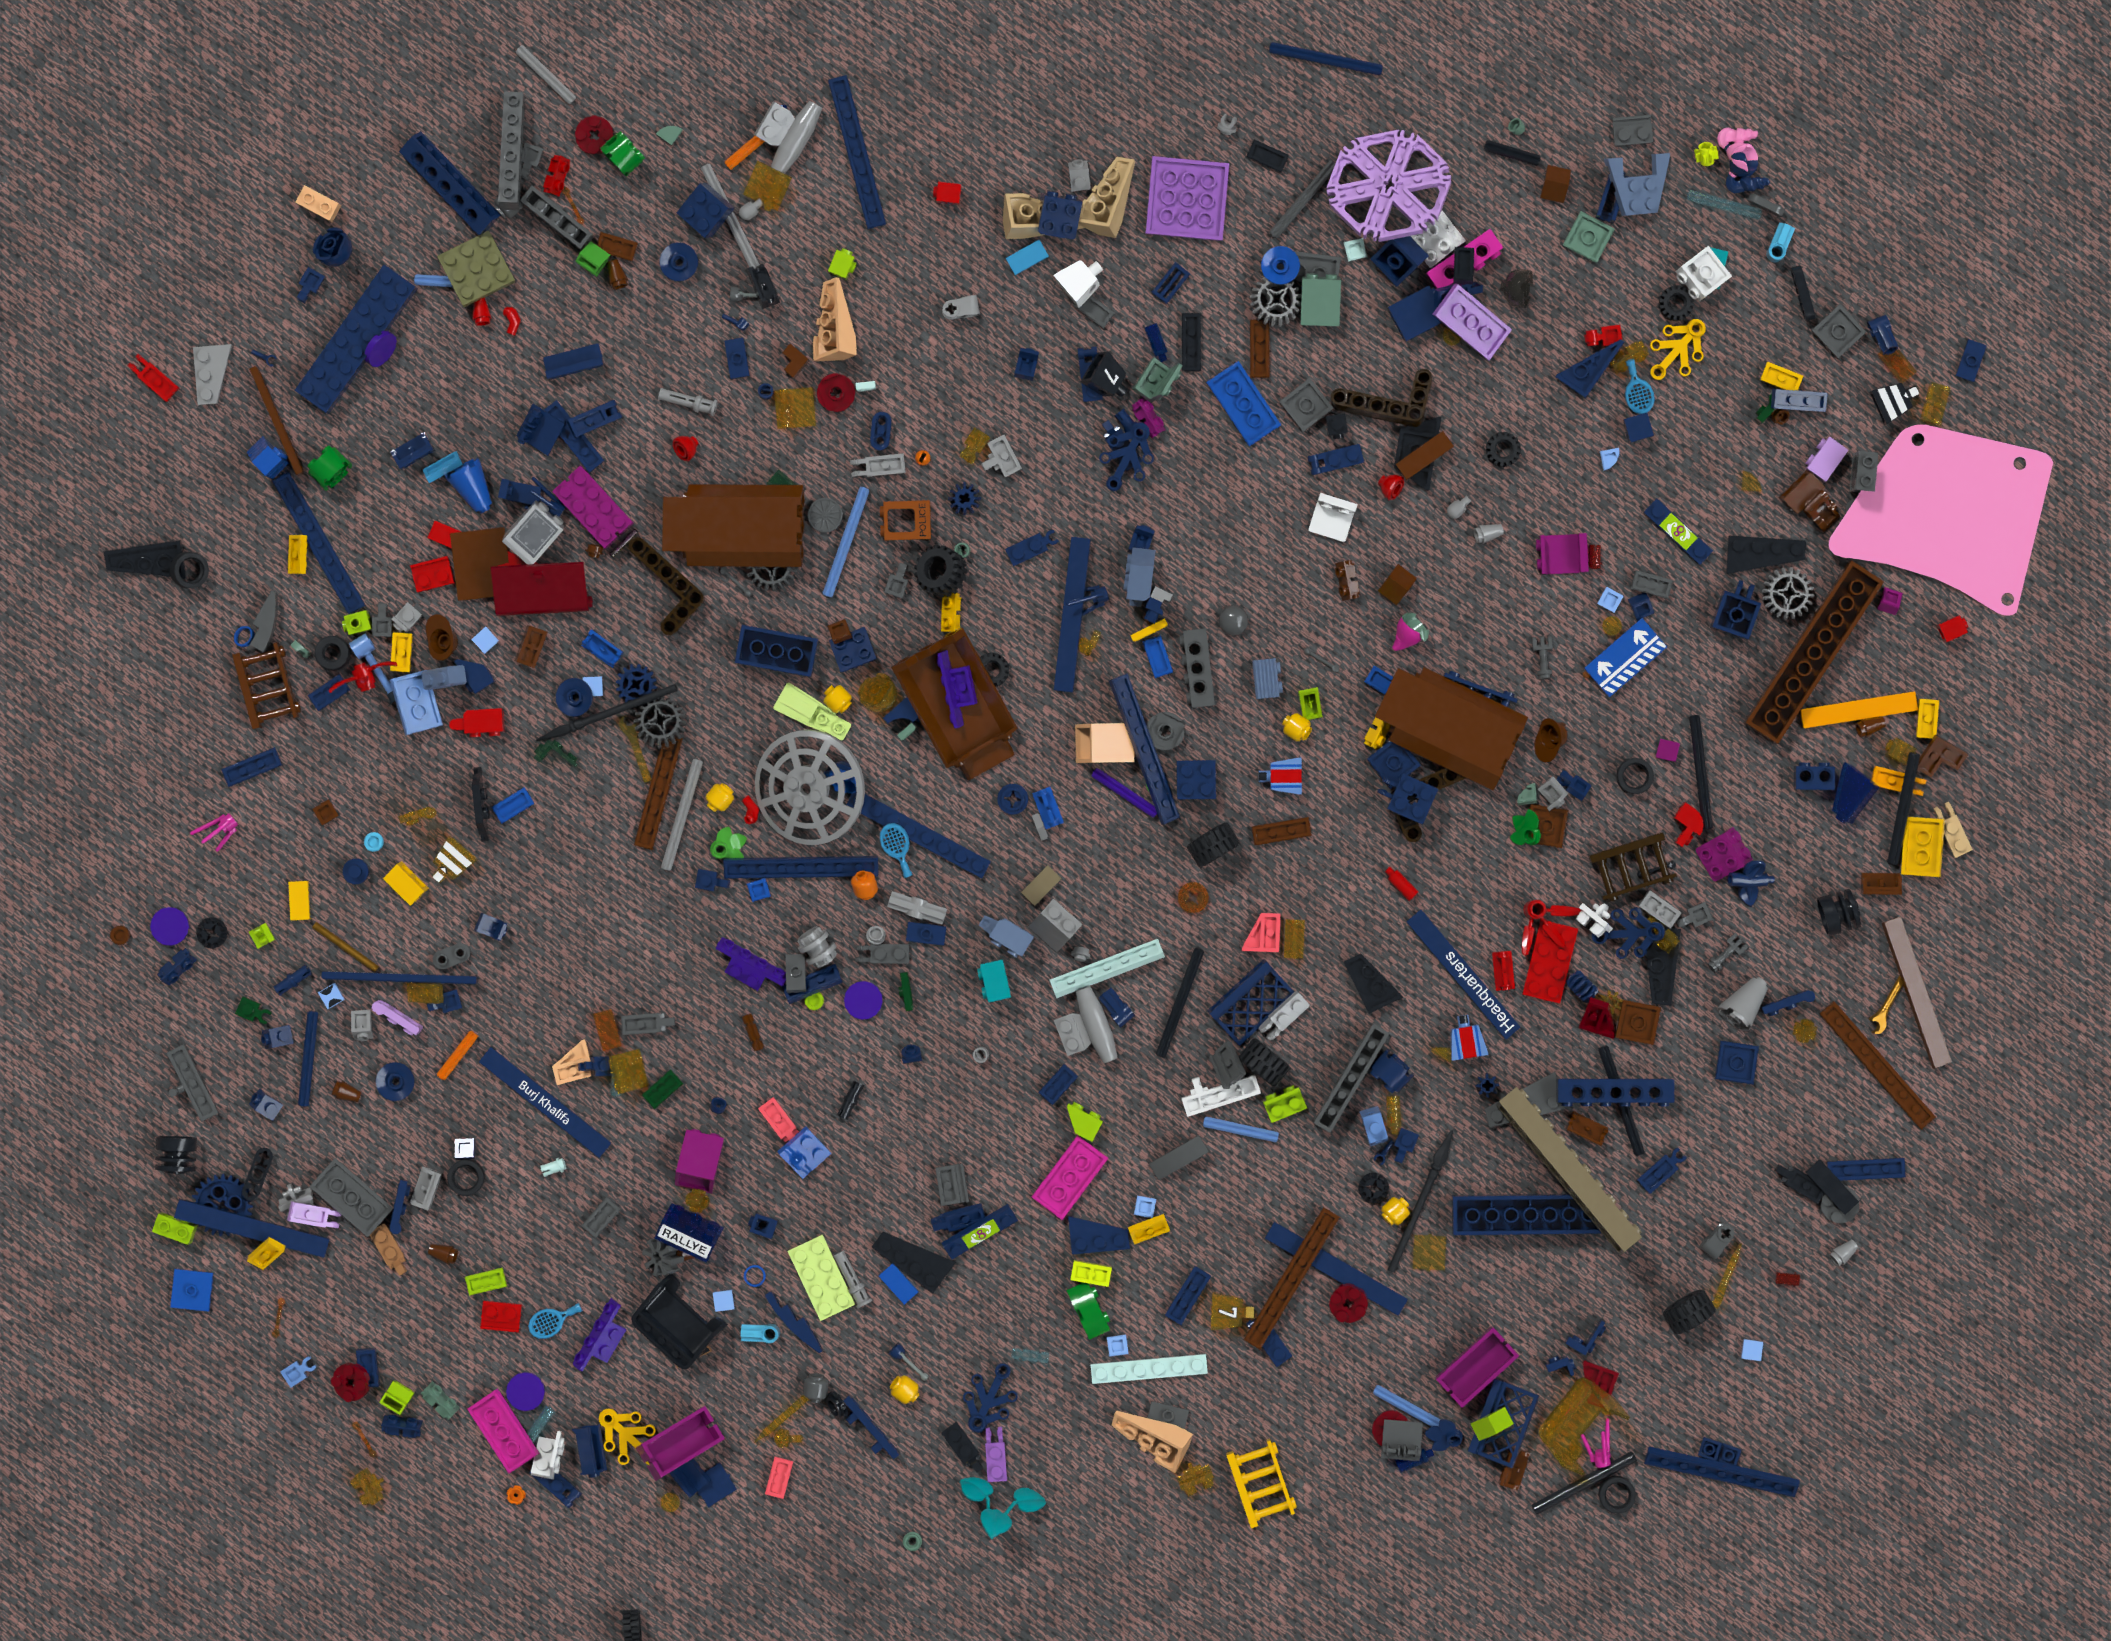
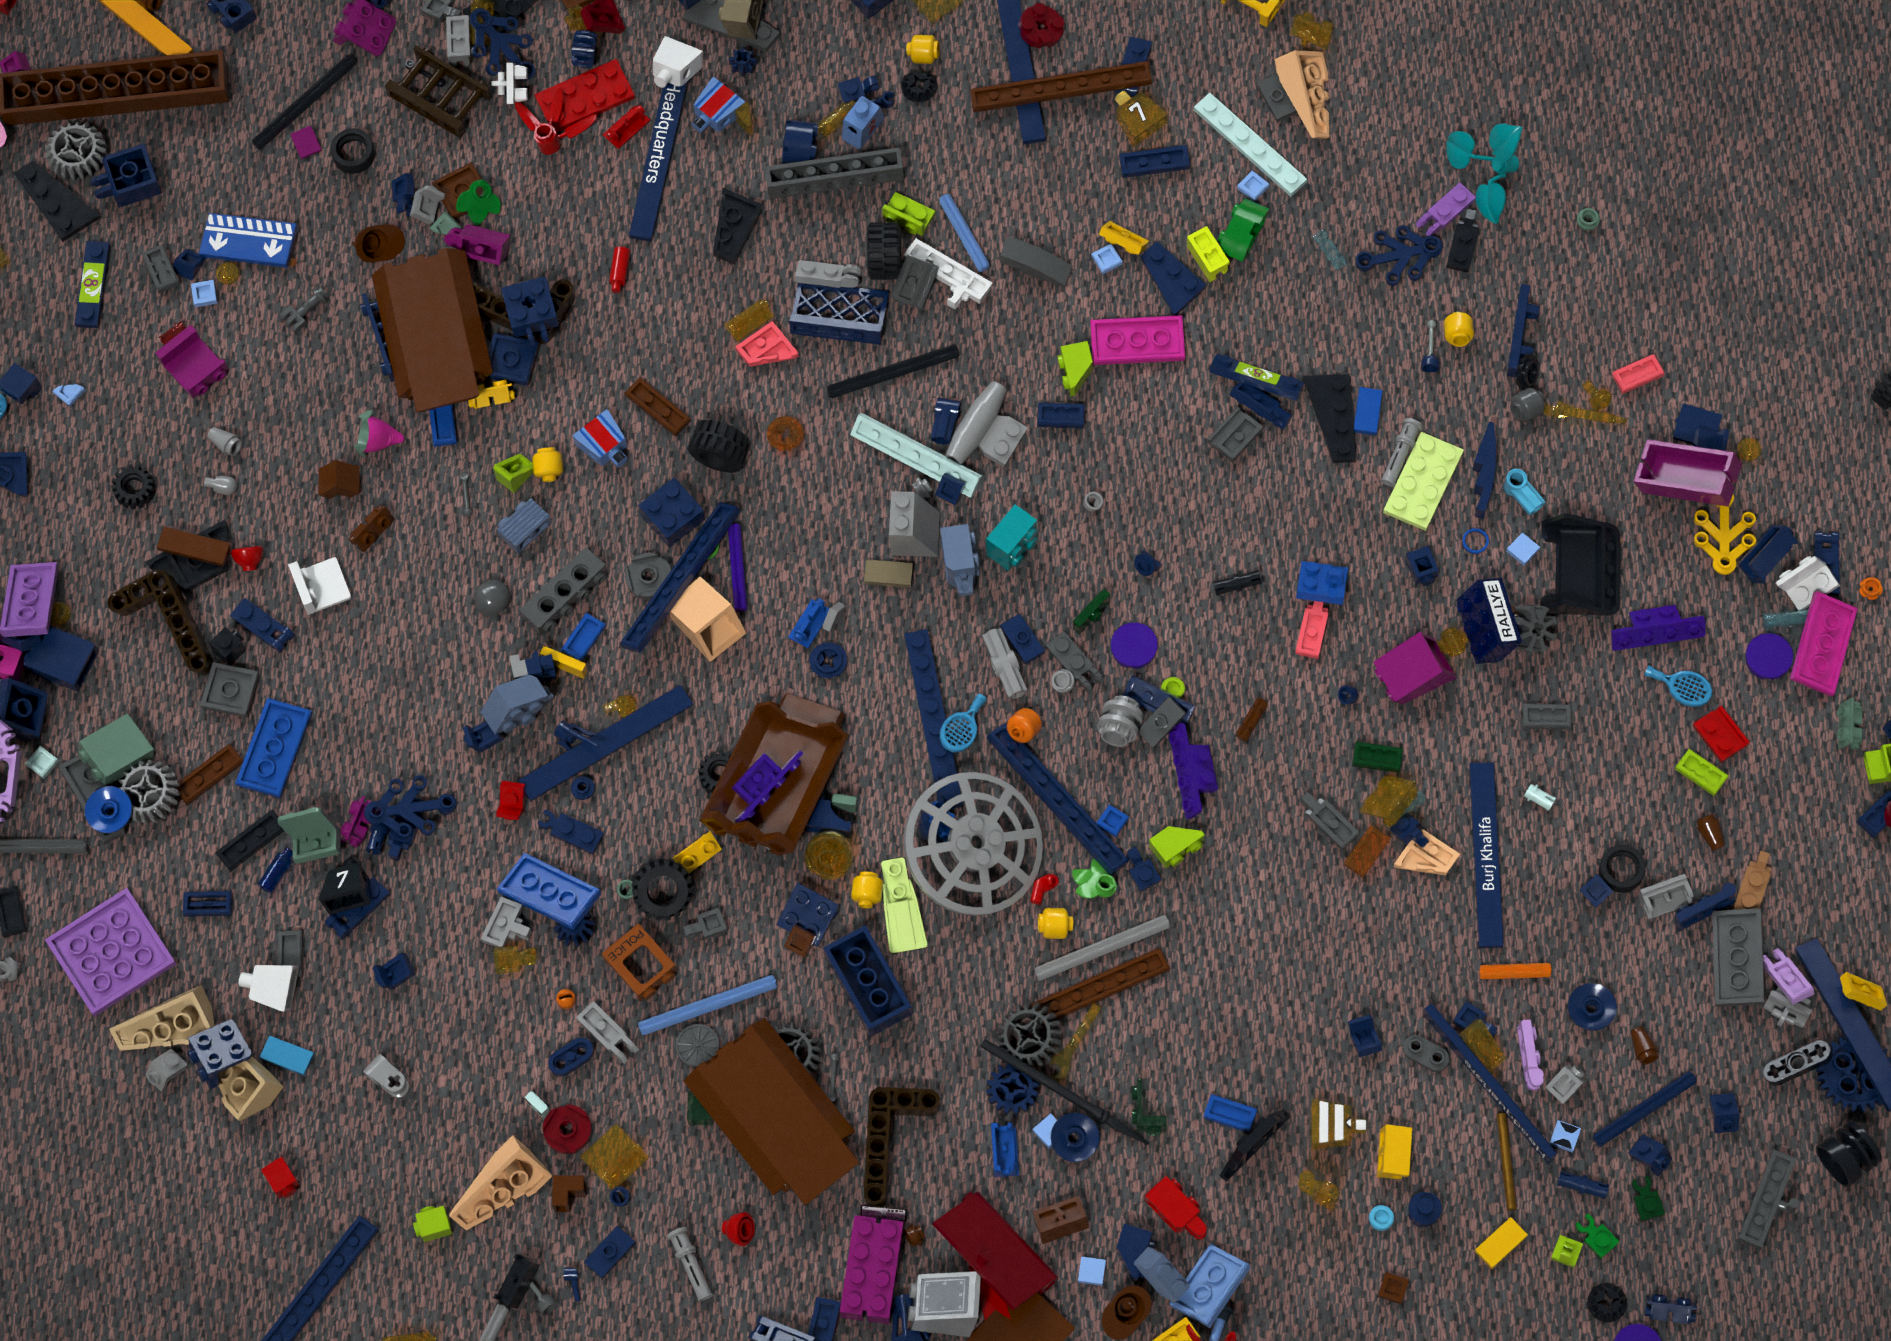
camera: 125 degrees left, 20 degrees down
(252, 961) = (1599, 1239): none -> green plate
(710, 913) = (1174, 843): none -> lime slope
(998, 500) = (549, 891): none -> blue tile
(1058, 581) = (585, 794): none -> dark blue plate
(1065, 971) = (950, 488): none -> dark blue tile
(1080, 523) = (511, 800): none -> red bracket
(1439, 1159) = (846, 51): black piece -> none
(1493, 805) = (480, 243): none -> magenta brick
(1520, 1038) = (675, 62): none -> white torso
(1691, 820) = (357, 71): red brick -> none

